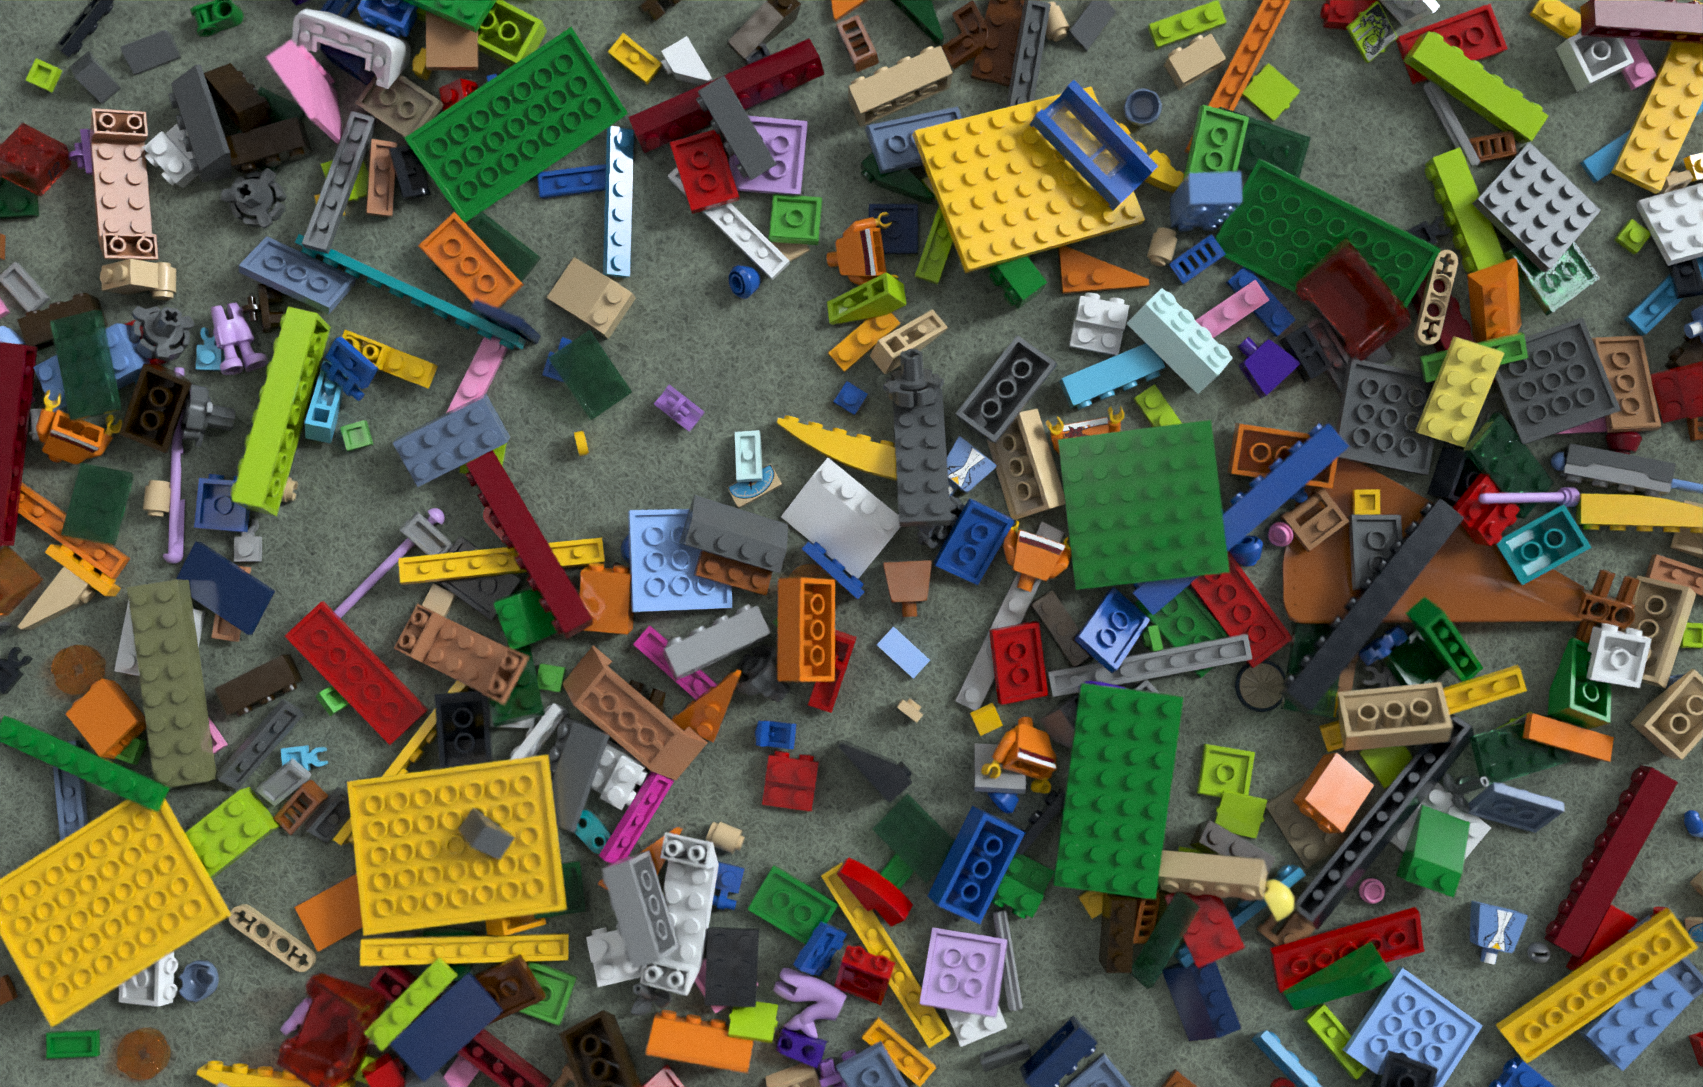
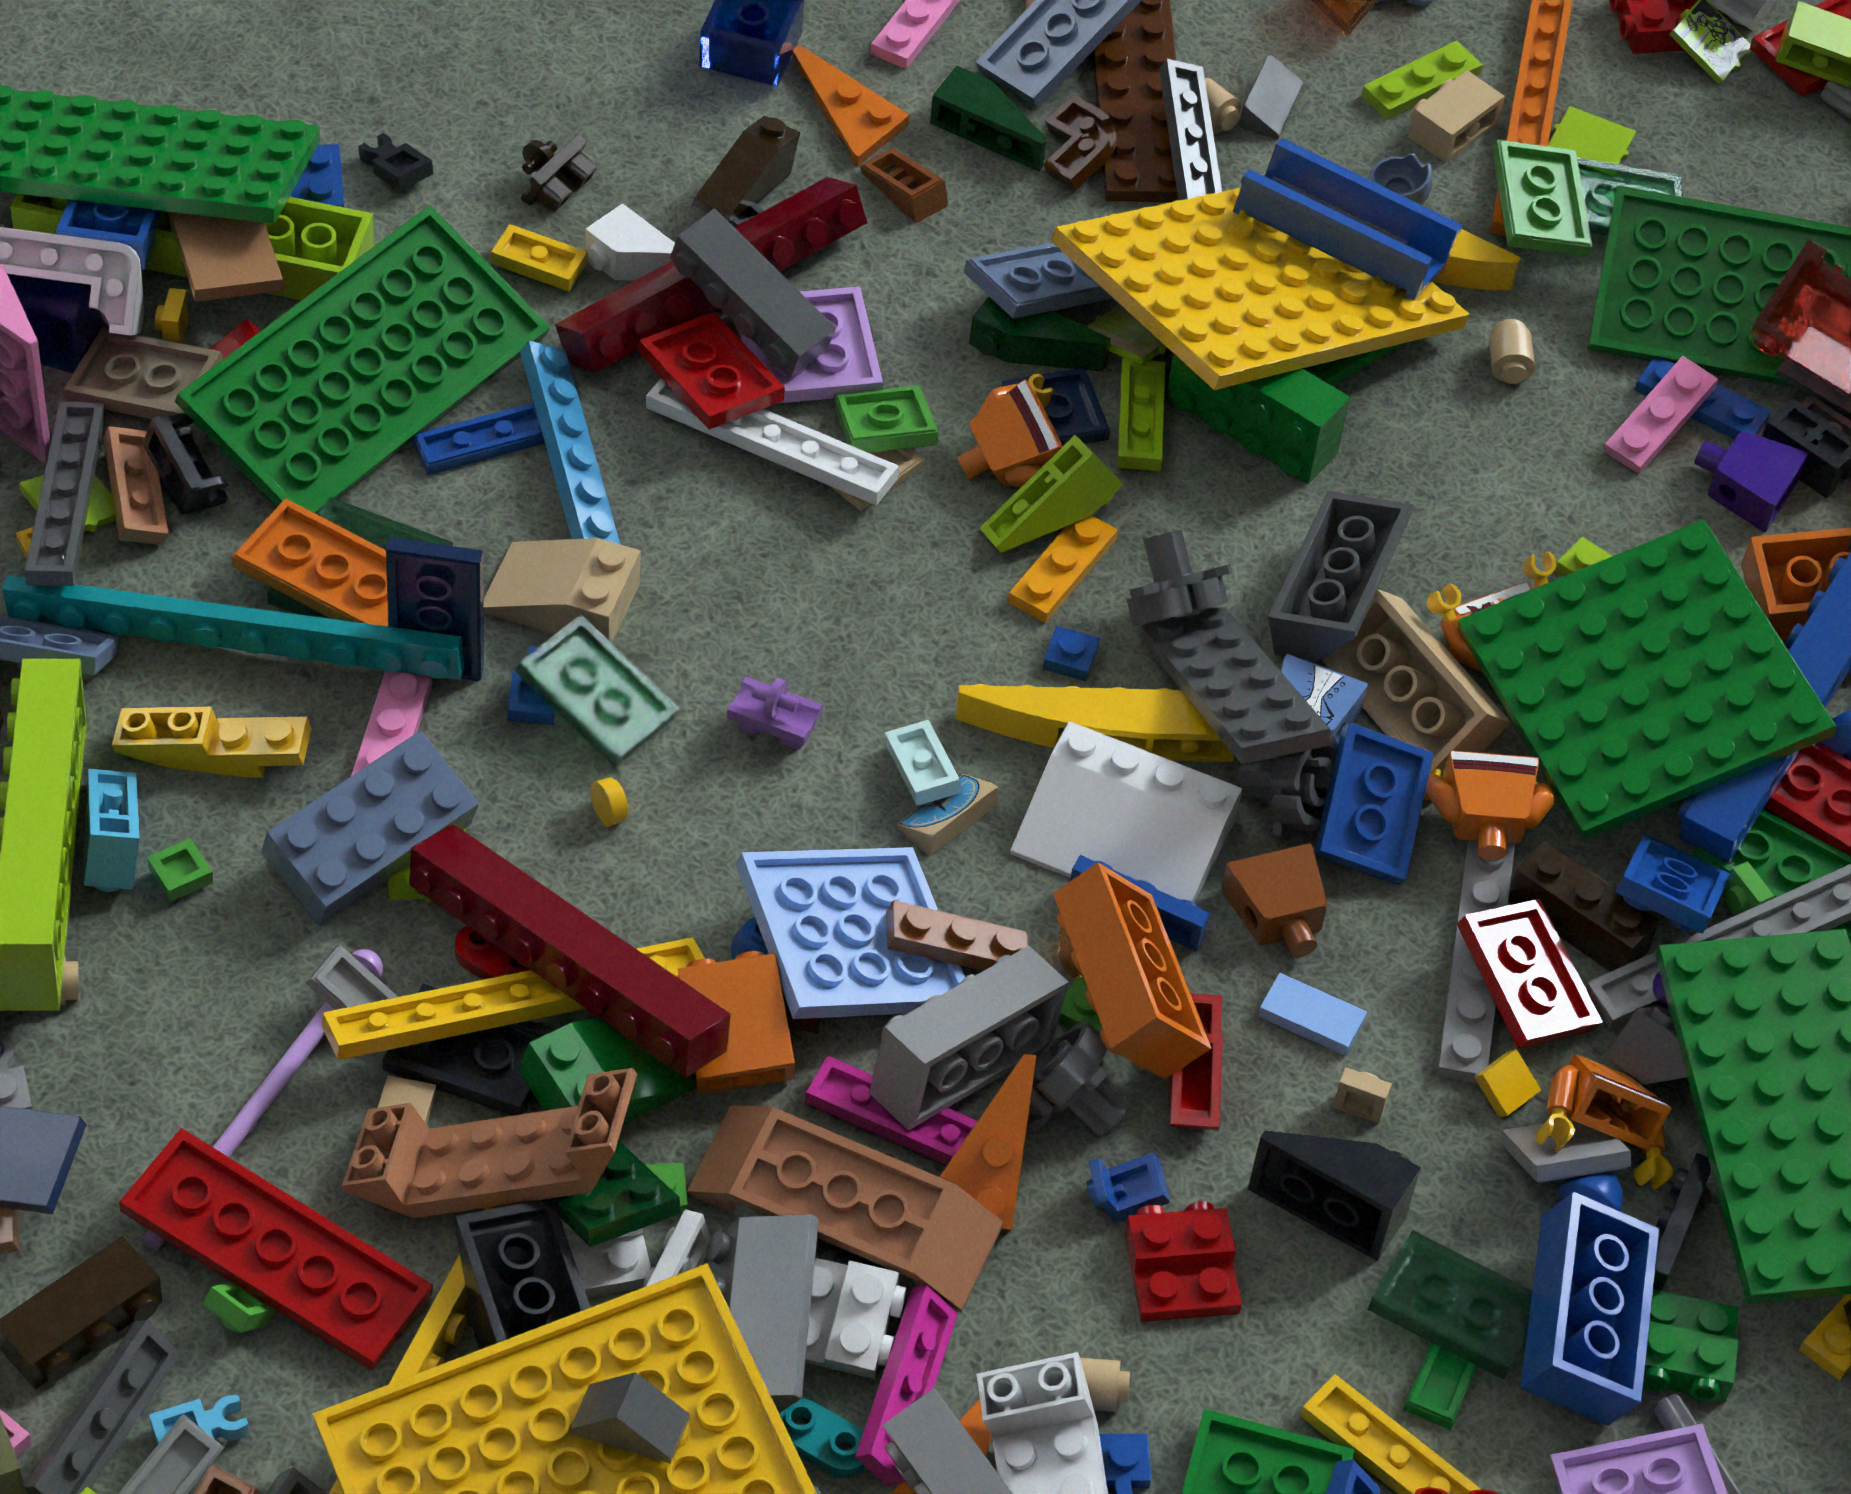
camera: 20 degrees left, 35 degrees down
(353, 364) = (155, 737): blue plate -> none
(735, 534) = (941, 876): dark grey slope -> none
(744, 281) = (826, 515): blue cone -> none
(875, 891) = (1417, 1403): red slope -> none
(900, 85) = (999, 208): tan brick -> none
(910, 336) = (1119, 554): tan slope -> none
(1087, 274) = (1406, 414): orange wing -> none
(1099, 324) = (1453, 473): white plate -> none
(1111, 374) = (1506, 533): medium azure brick -> none
(1180, 340) = (1604, 456): light aqua brick -> none
(1202, 266) = (1567, 387): blue slope -> none
(1205, 200) = (1558, 248): medium blue brick -> none

